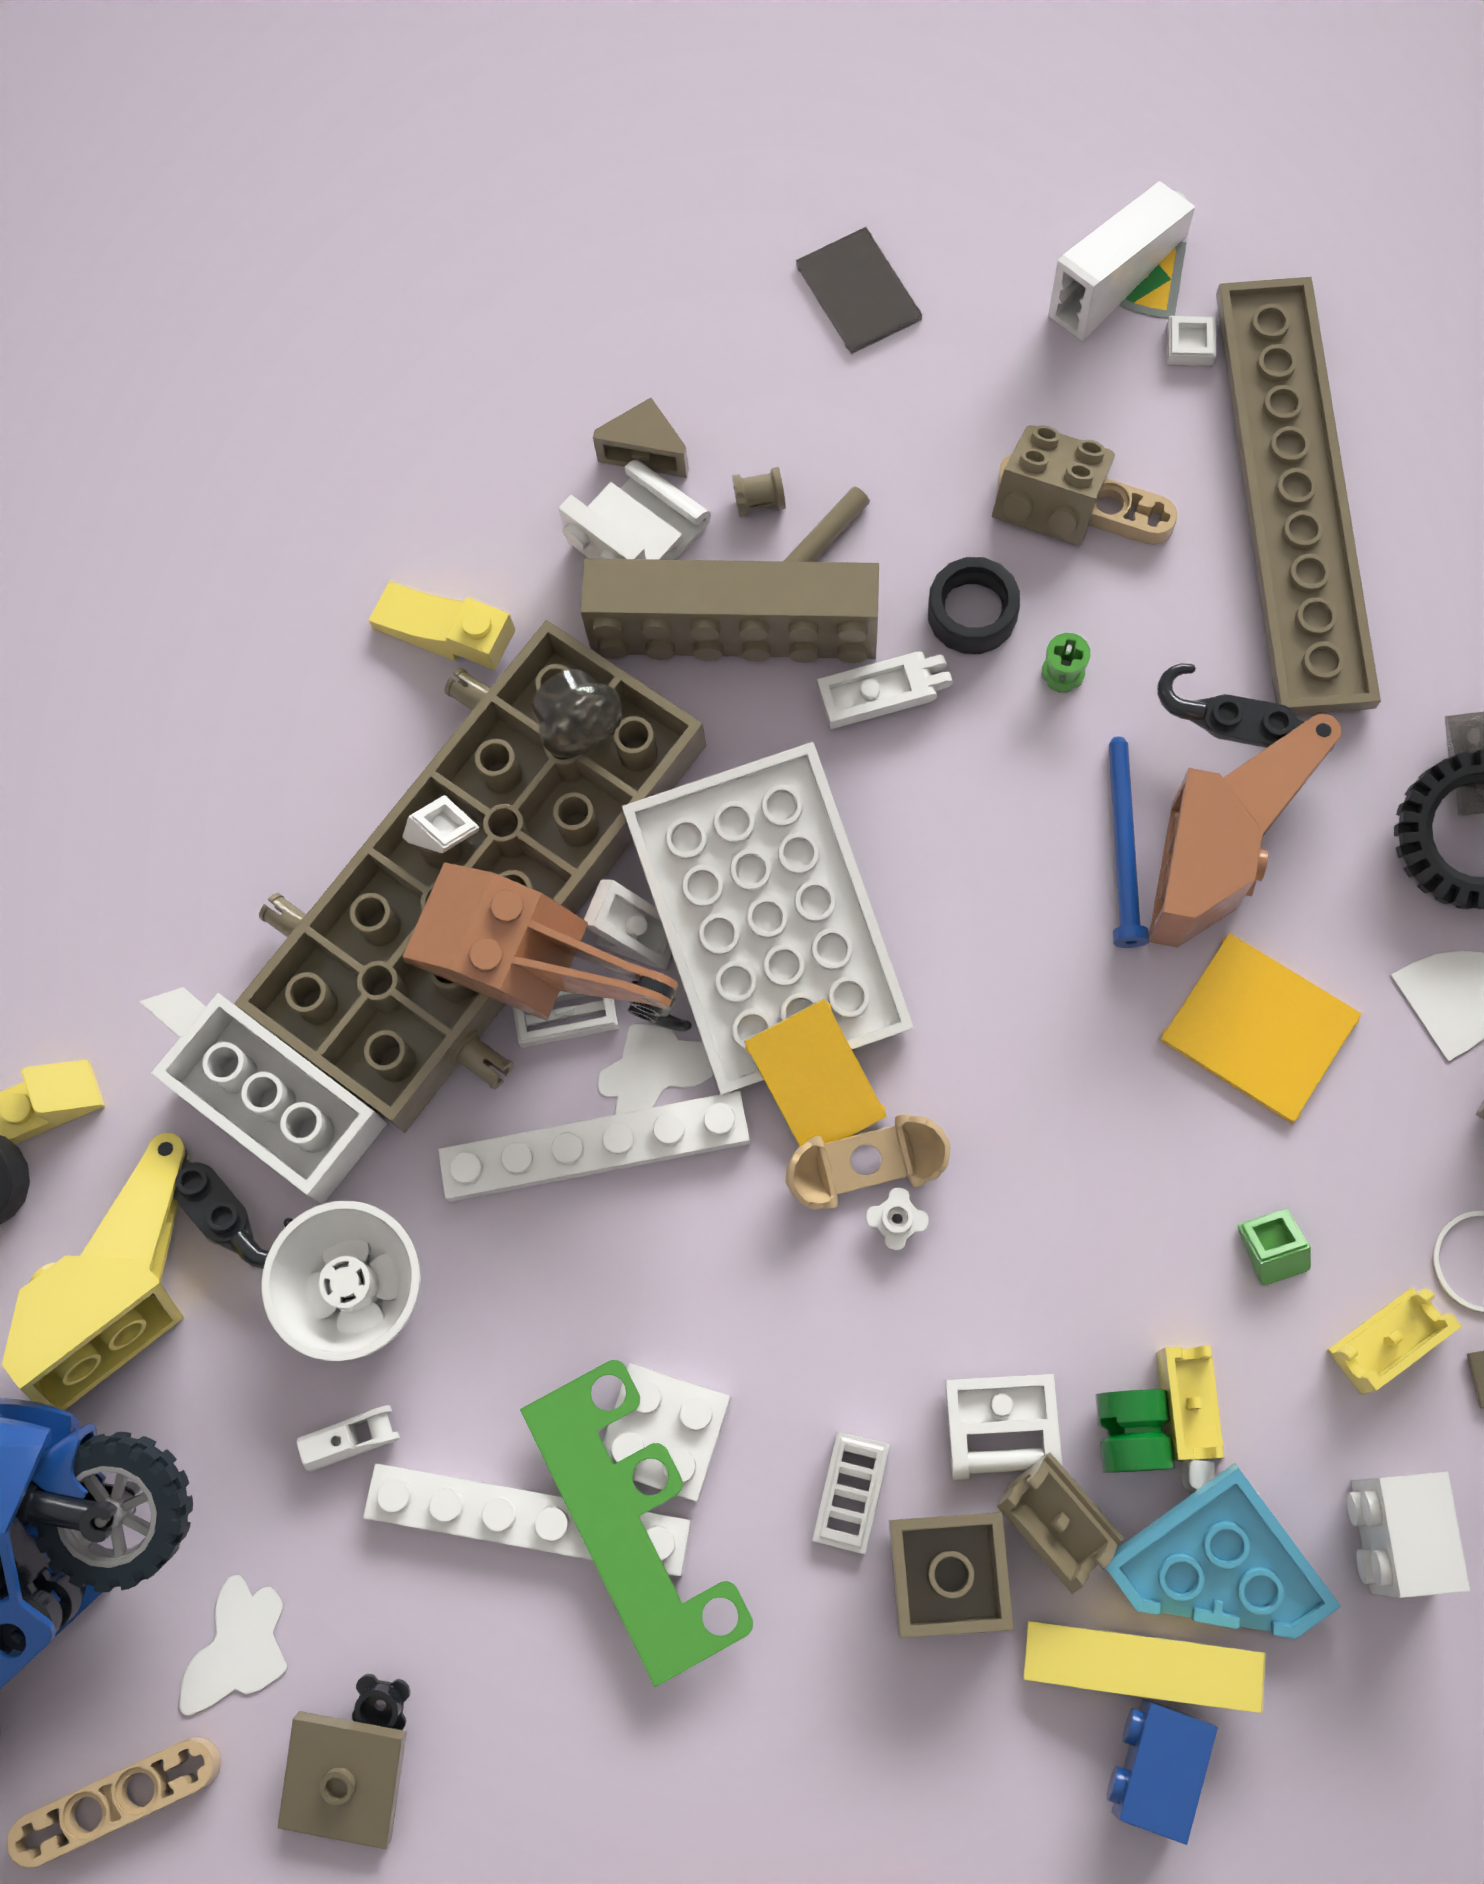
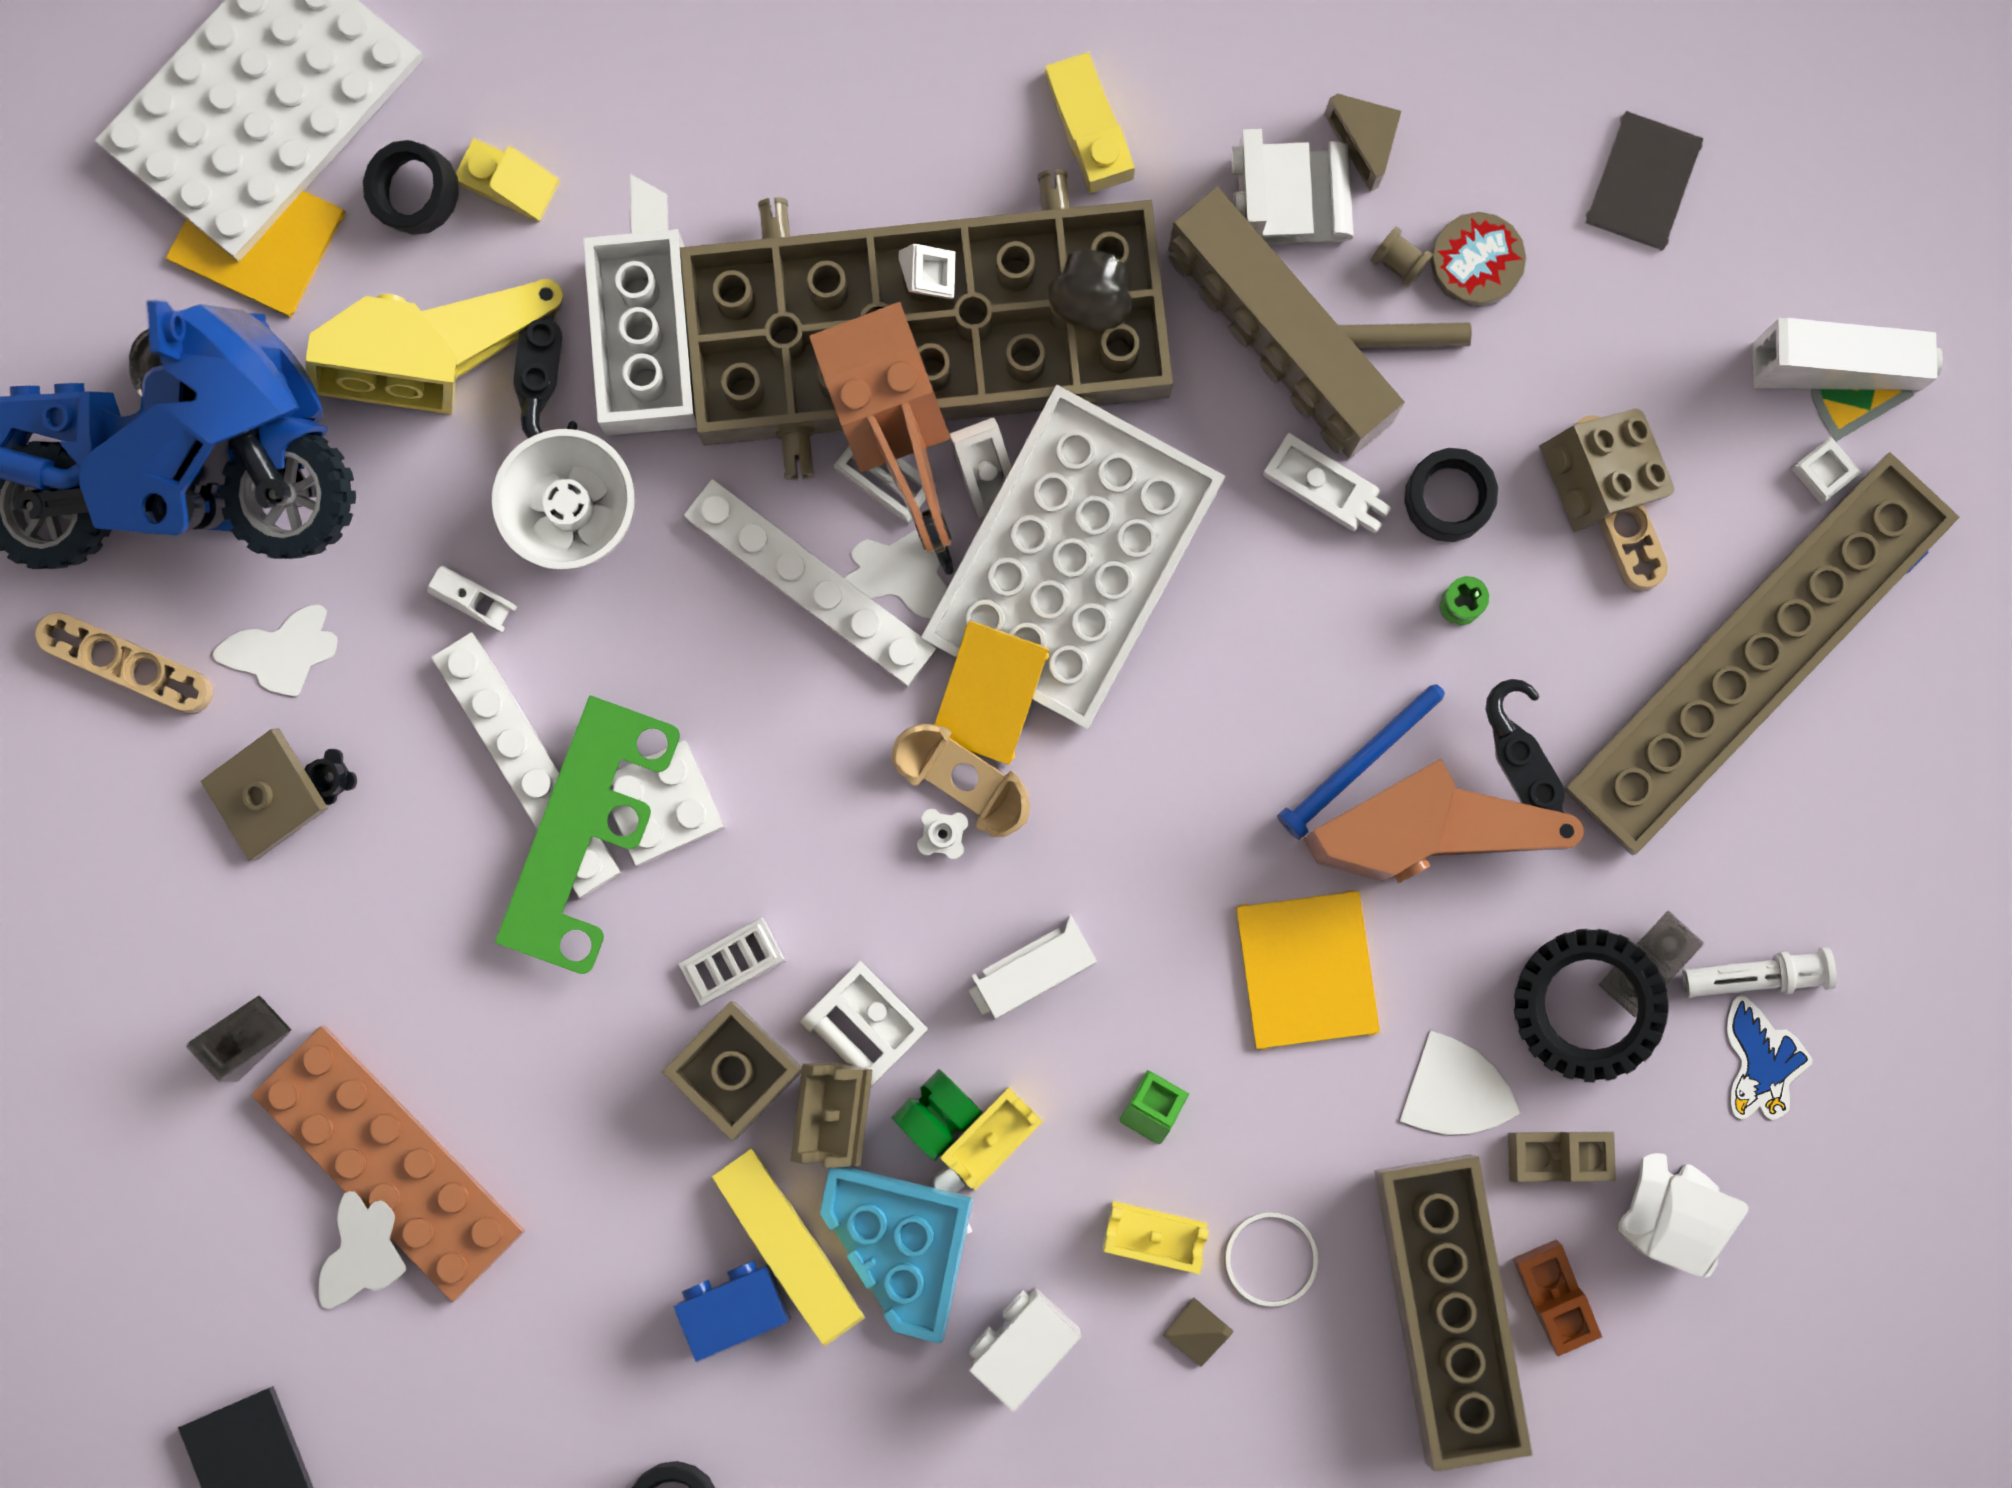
camera: 40 degrees right, 10 degrees up
(810, 443) = (1478, 259): none -> tile
(1077, 1243) = (1032, 970): none -> white window

